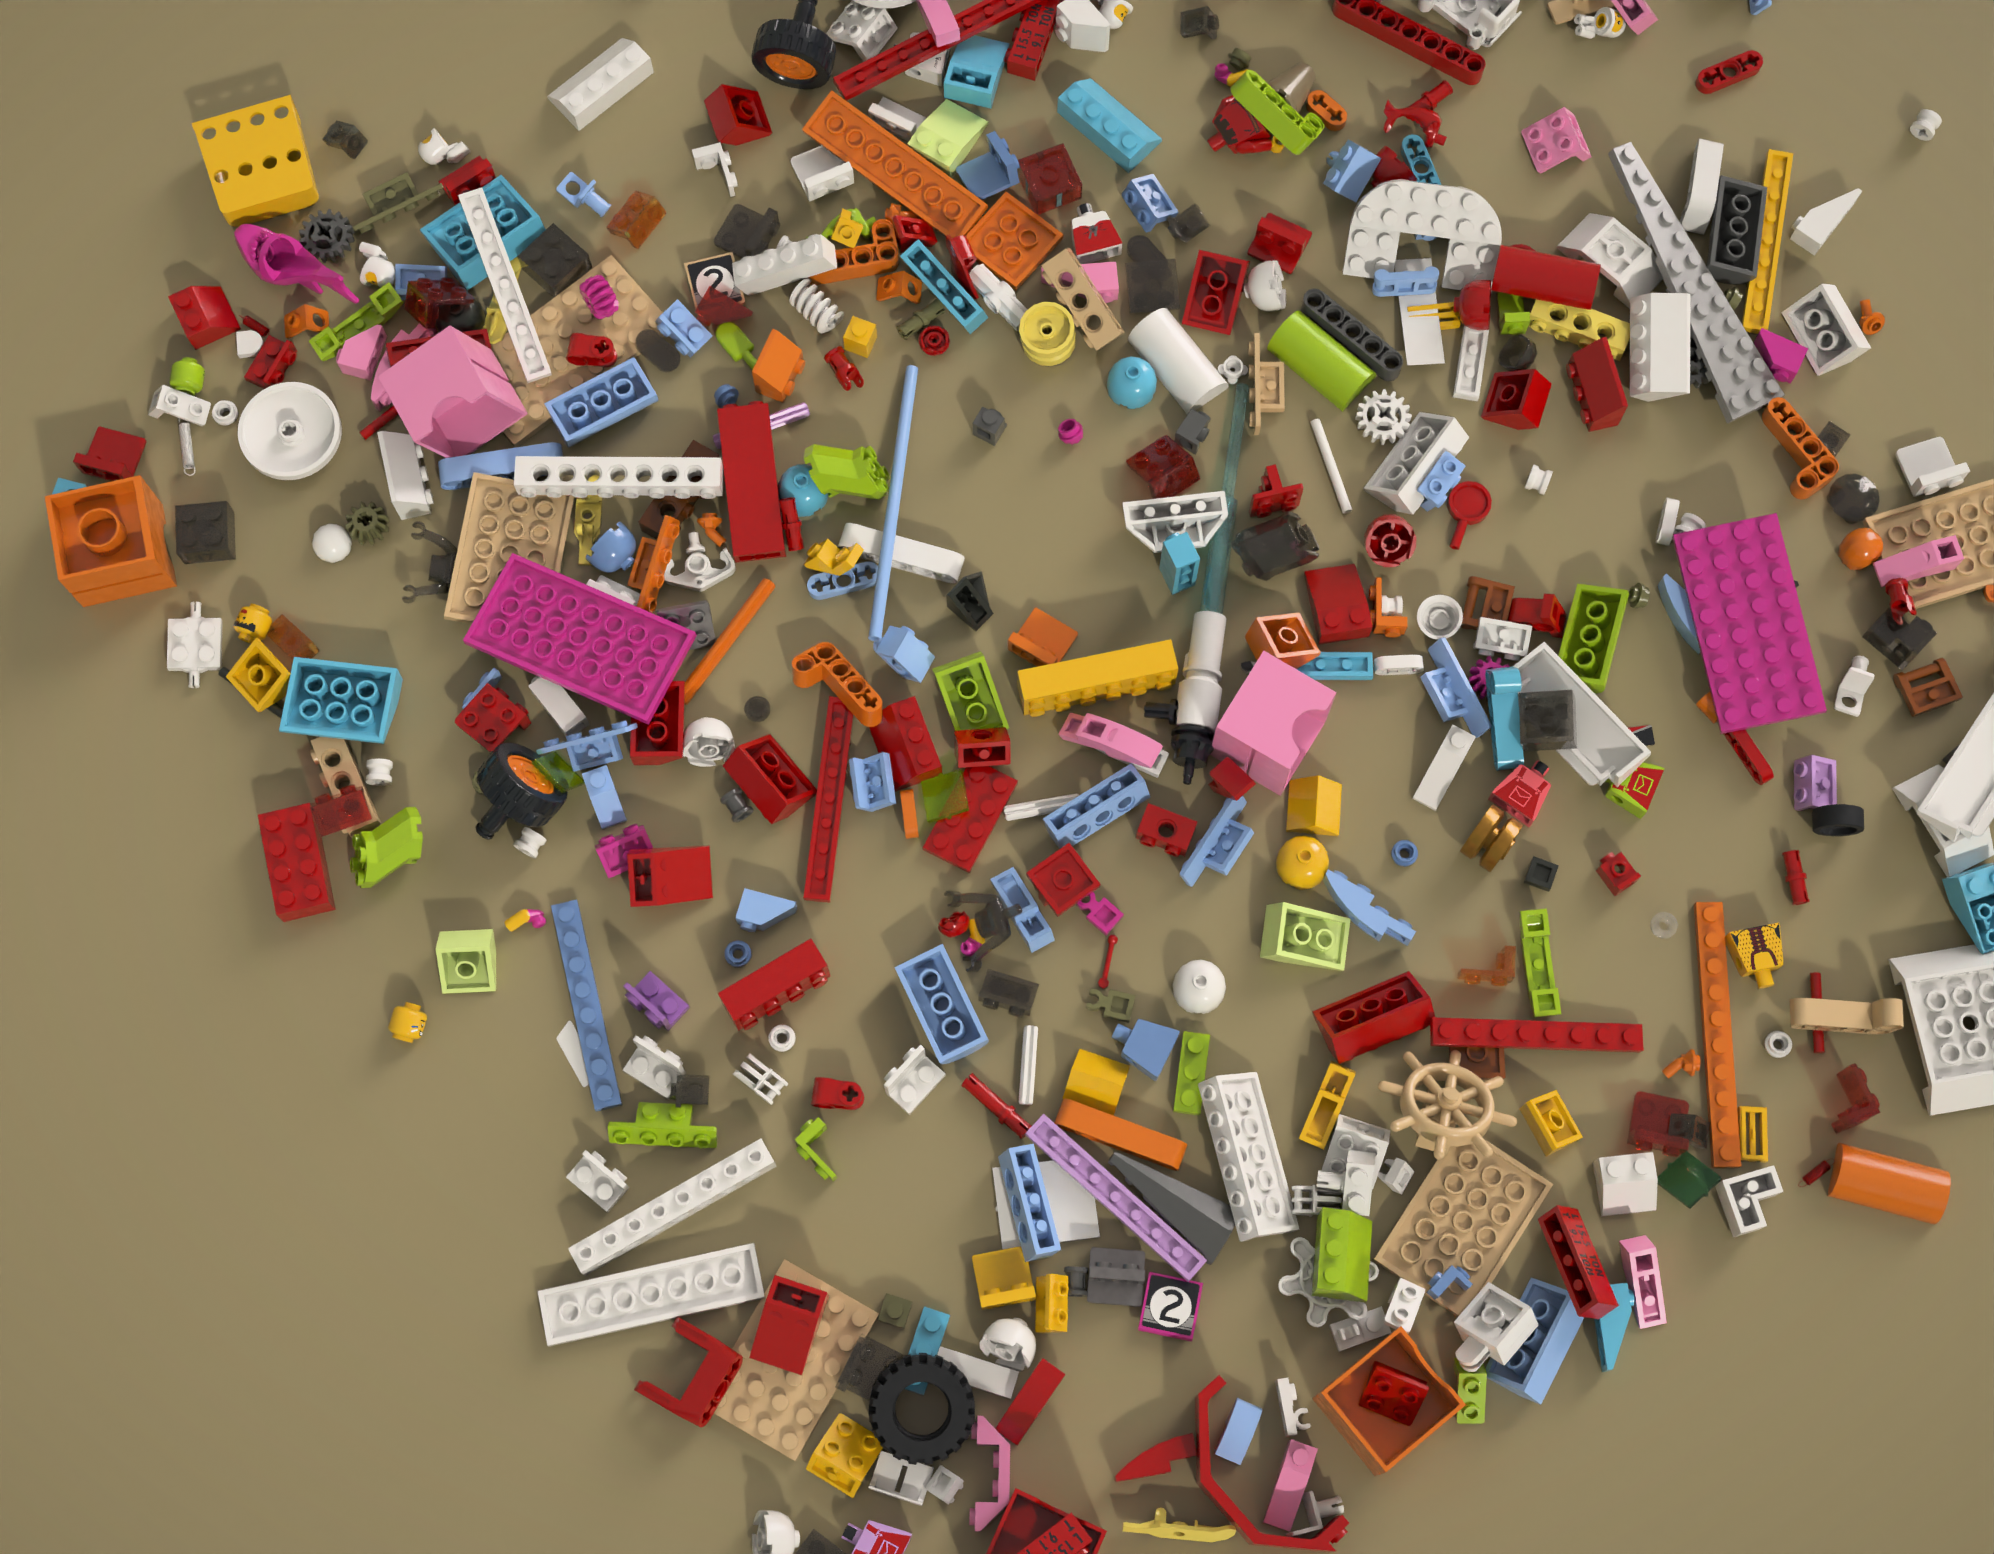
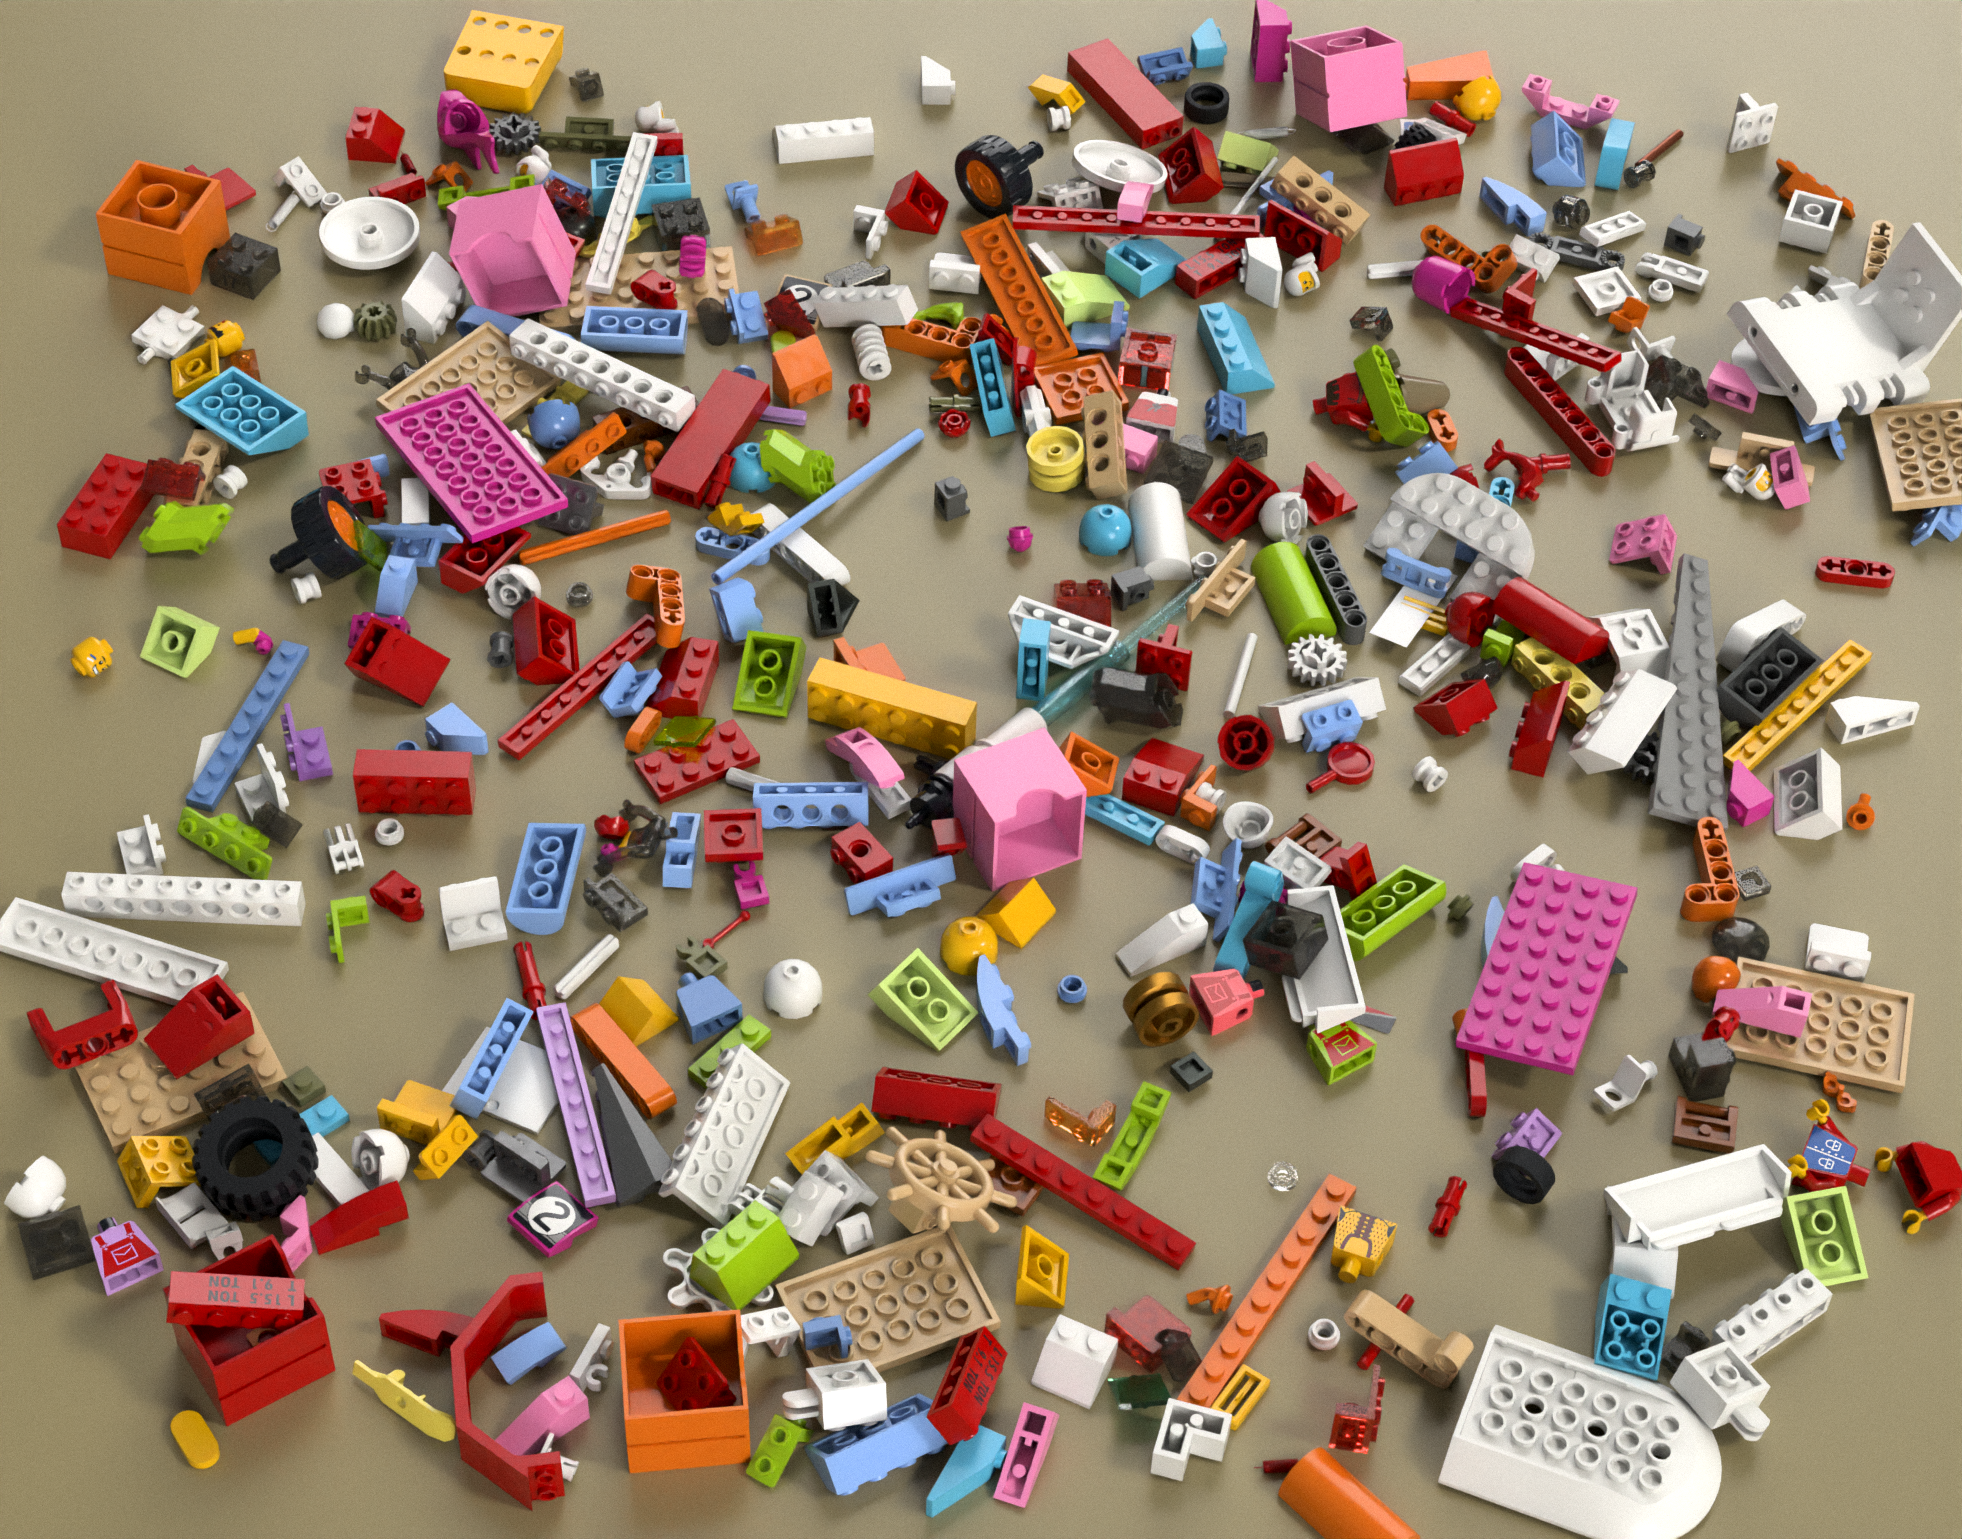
camera: 30 degrees right, 25 degrees down
(187, 376) = (325, 166): lime head -> none
(248, 343) = (390, 171): white tile -> none
(846, 230) = (938, 306): yellow bracket -> none
(860, 337) = (891, 389): yellow brick -> none
(982, 747) = (746, 710): red brick -> none
(1617, 881) = (1267, 1109): red brick -> none

